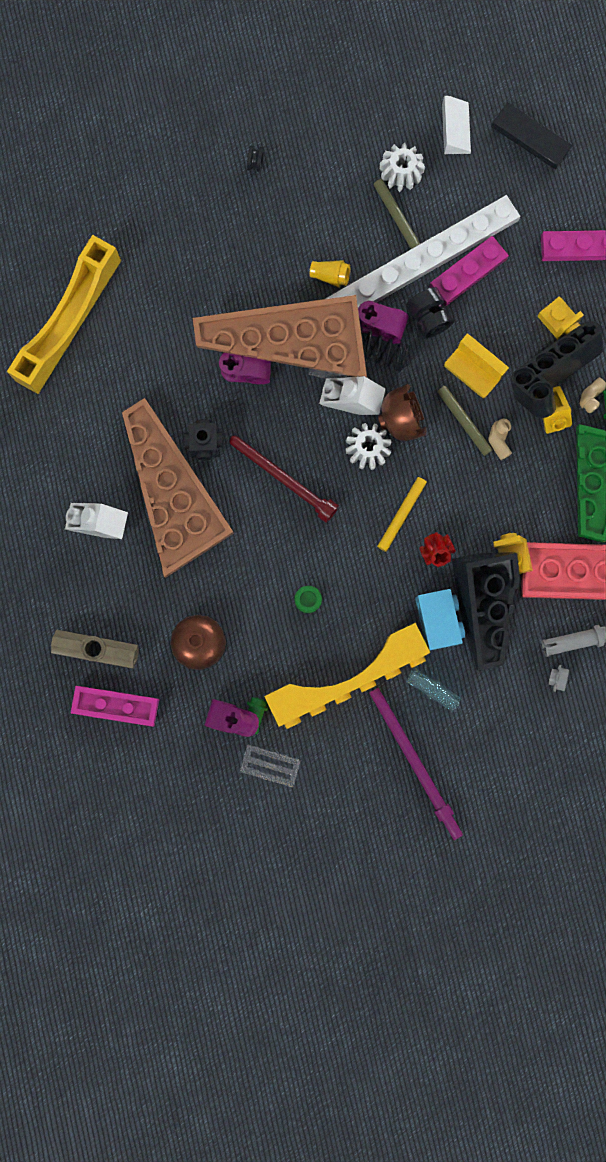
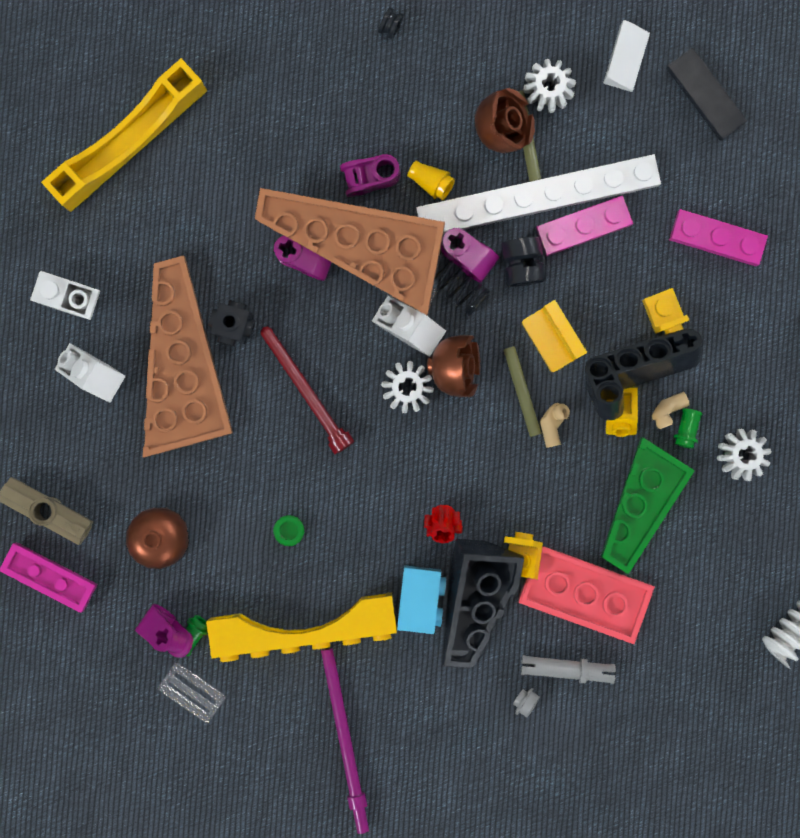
camera: 20 degrees right, 5 degrees up
(55, 461) = (65, 295): none -> white slope
(278, 286) = (368, 175): none -> magenta piece
(374, 205) = (504, 121): none -> copper cylinder
(402, 514) = (419, 471): yellow bar -> none
(433, 689) = (389, 670): clear light blue pin -> none

